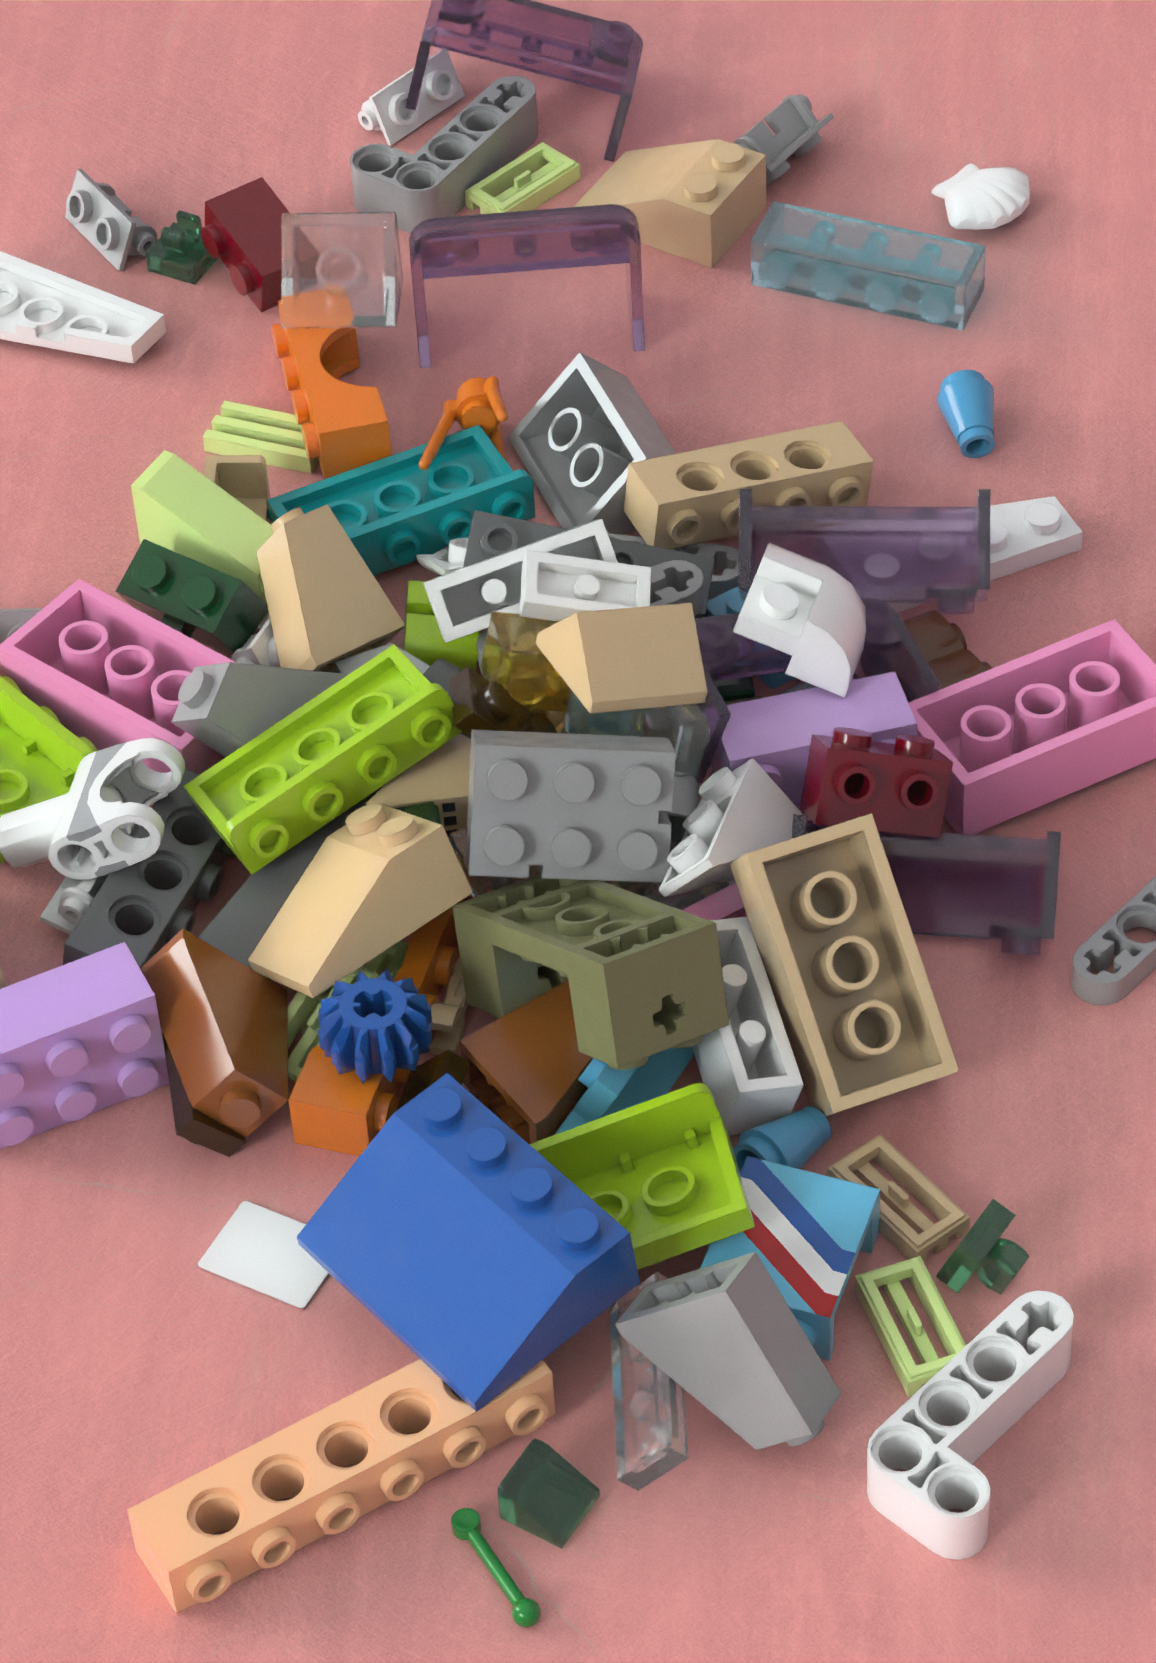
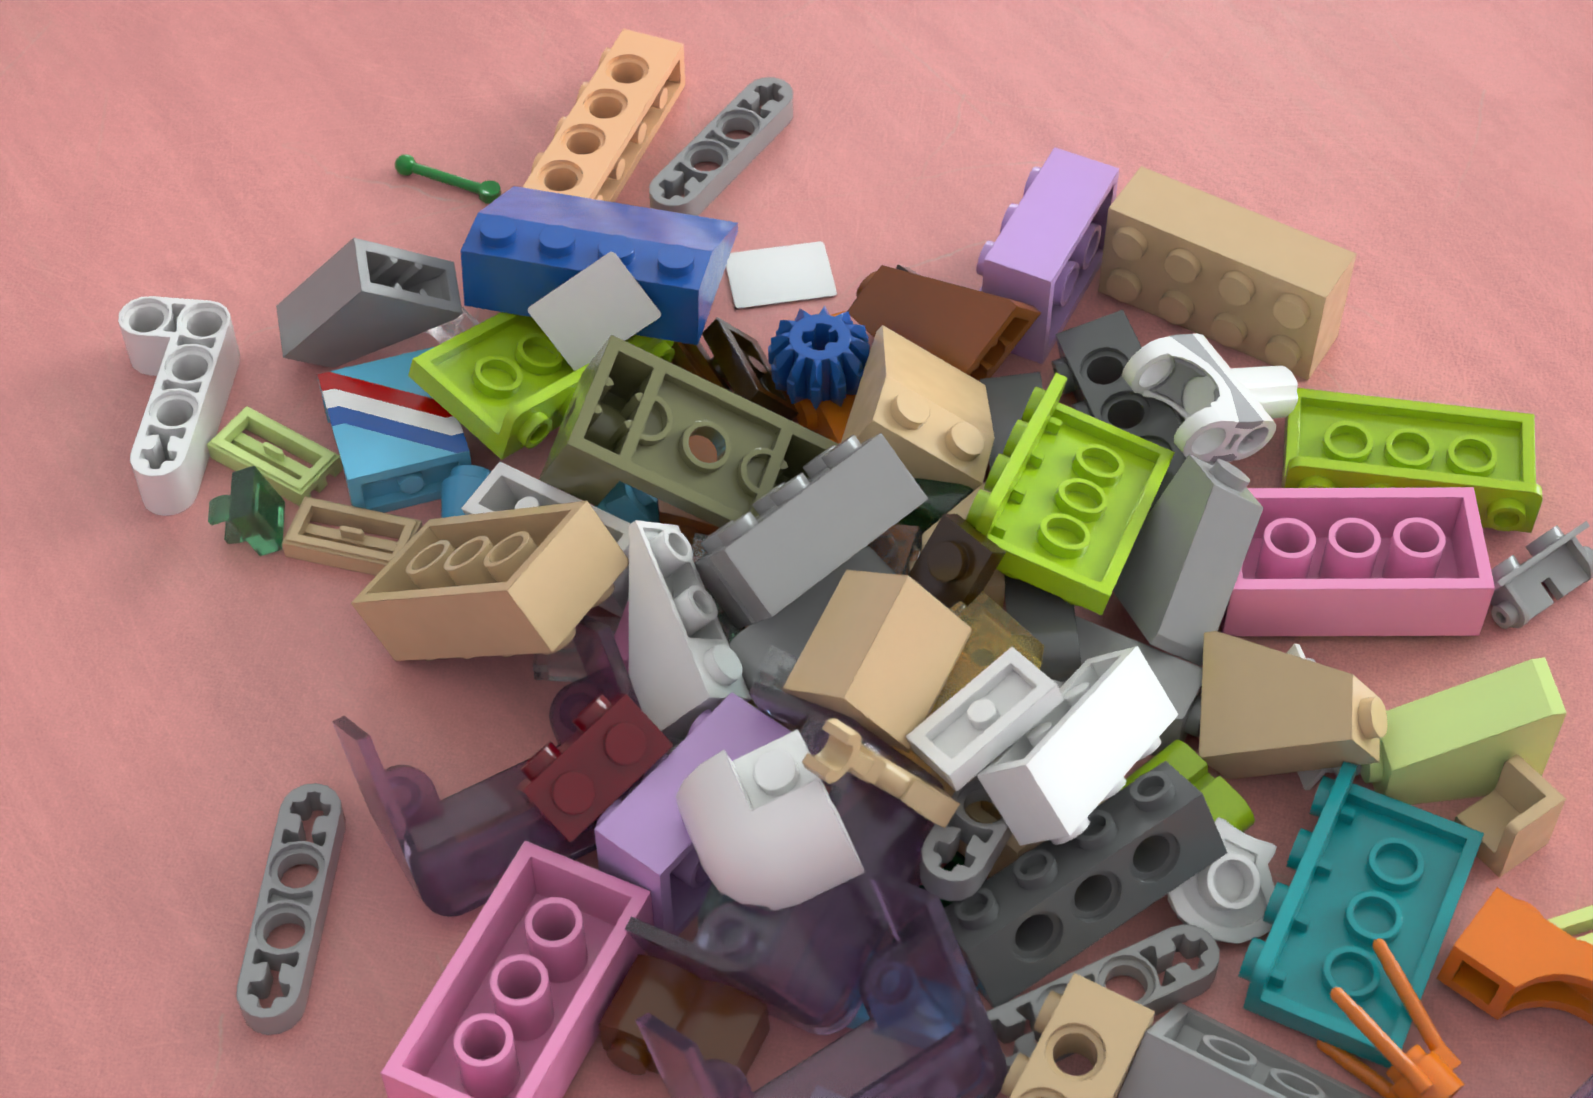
camera: 140 degrees right, 5 degrees up
(188, 1404) = (731, 154): none -> light grey beam
(191, 597) = (1412, 660): dark green brick -> none
(544, 1147) = (592, 308): none -> white sticker
(545, 1494) = (444, 220): clear green slope -> none
(714, 585) = (847, 753): none -> tan piece

